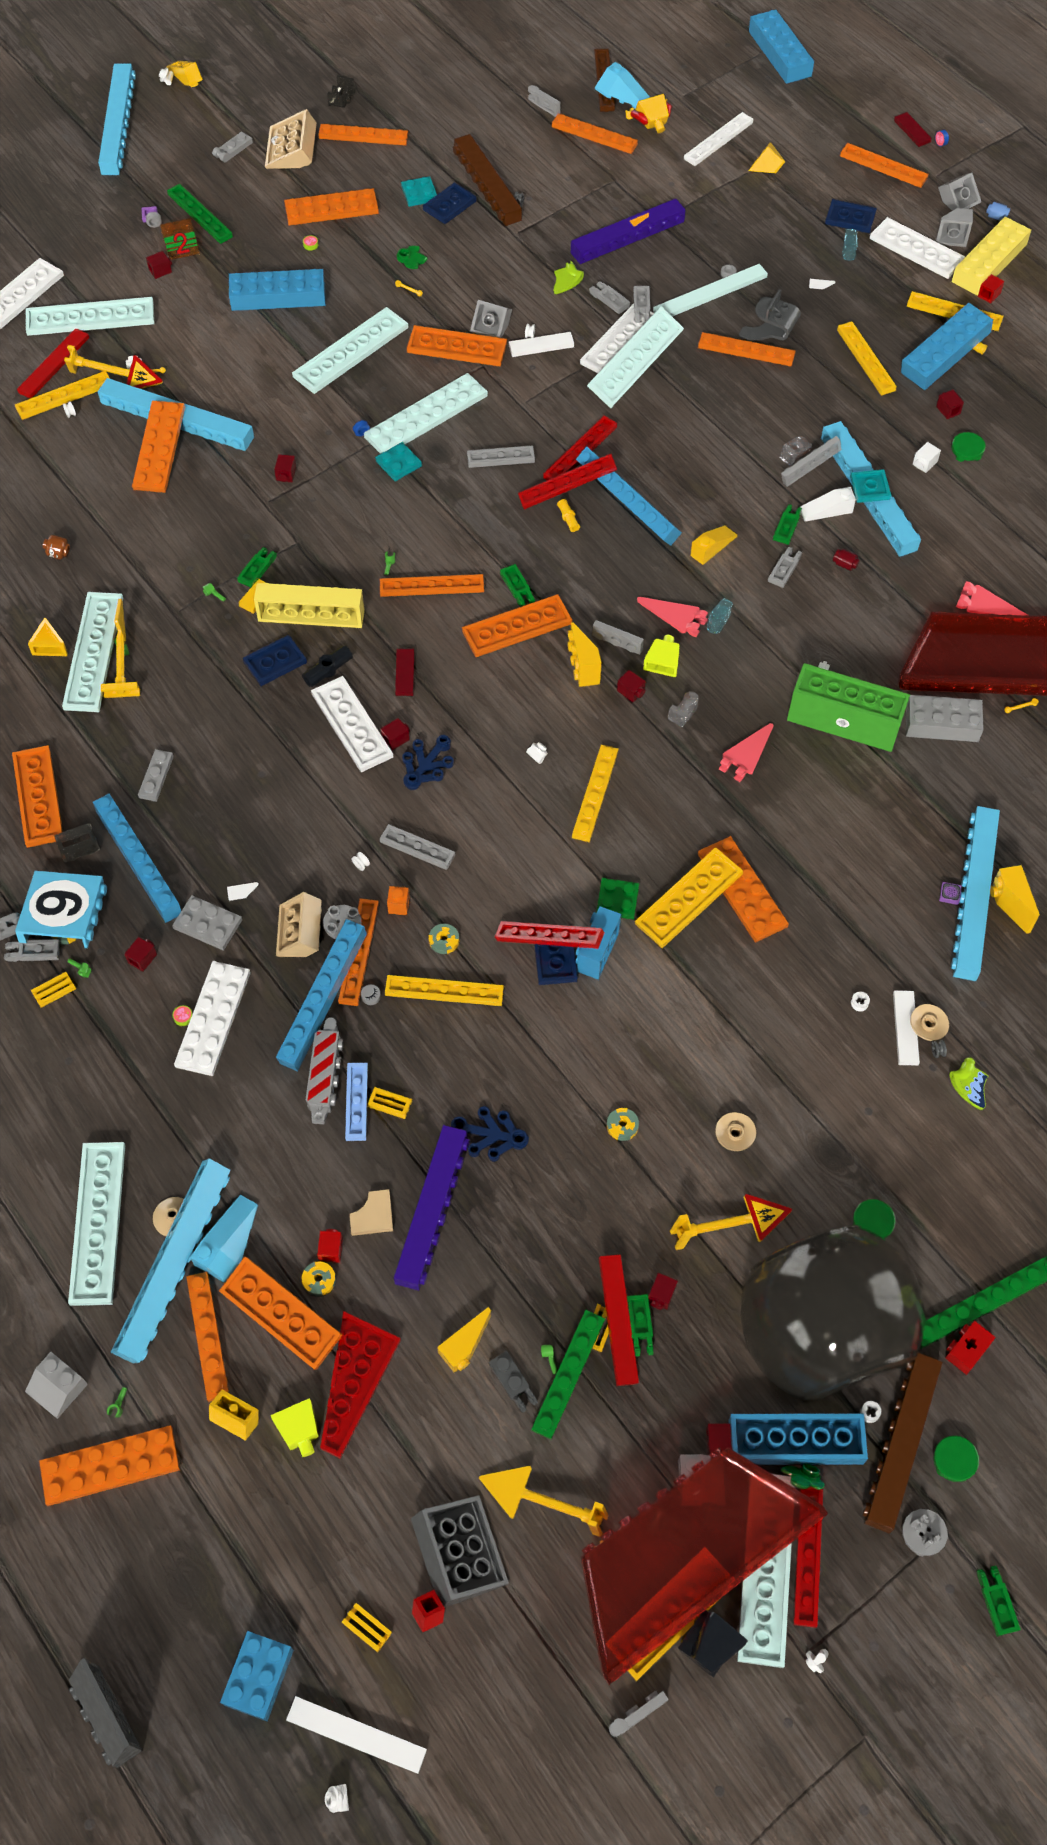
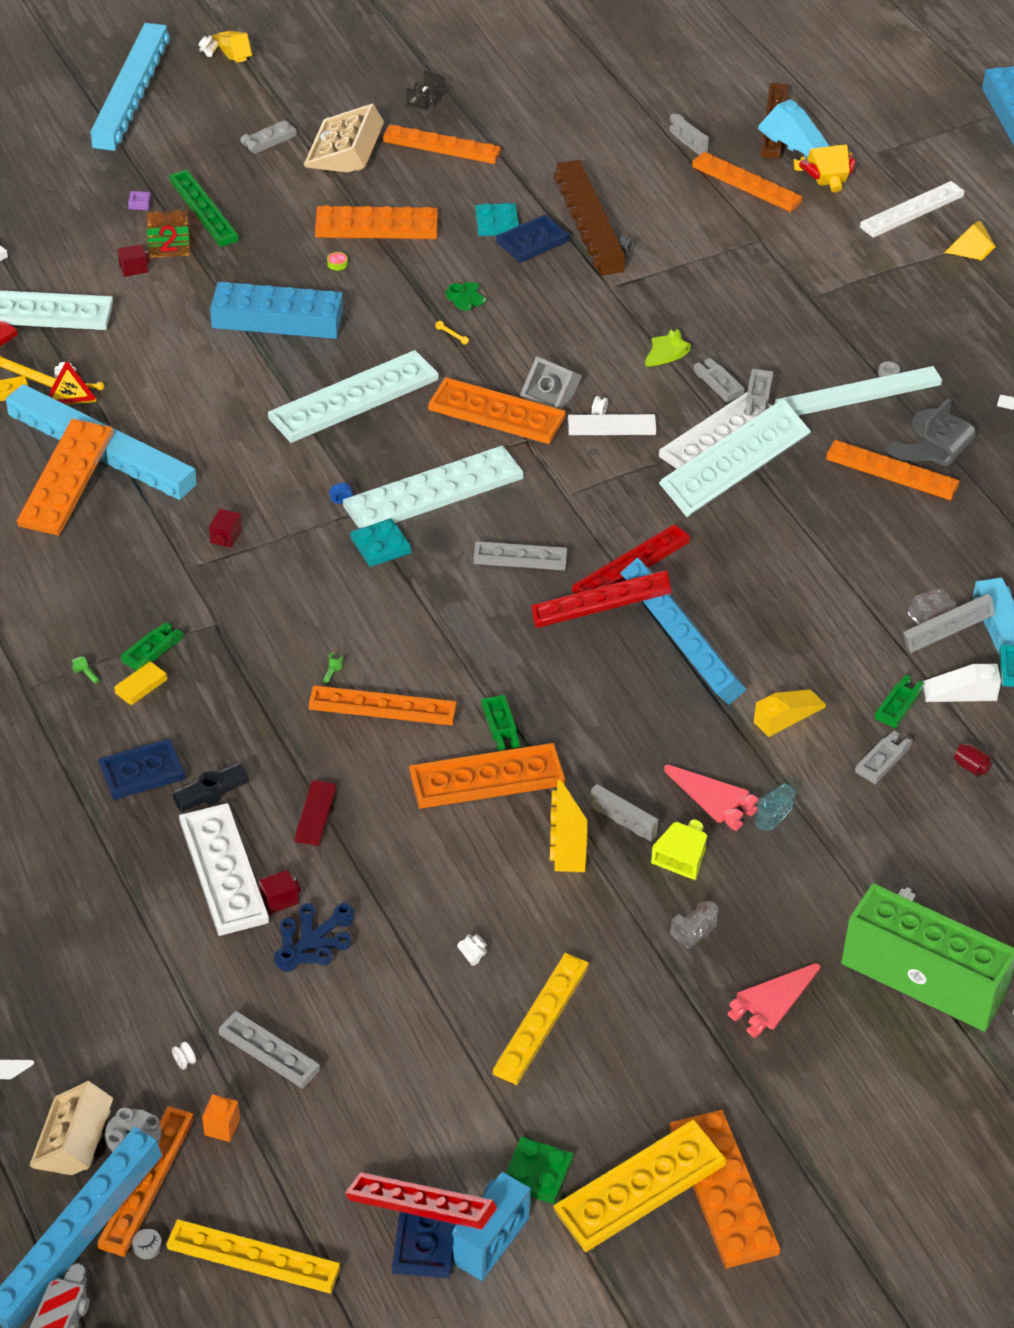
camera: 10 degrees right, 15 degrees down
(153, 219) = (141, 206): light grey tile -> none
(309, 605) = (207, 704): light yellow brick -> none
(443, 946) = (273, 1194): piece -> none
(568, 515) = (594, 644): yellow pin -> none
(627, 231) = (762, 302): dark purple brick -> none
(631, 686) = (626, 880): dark red brick -> none

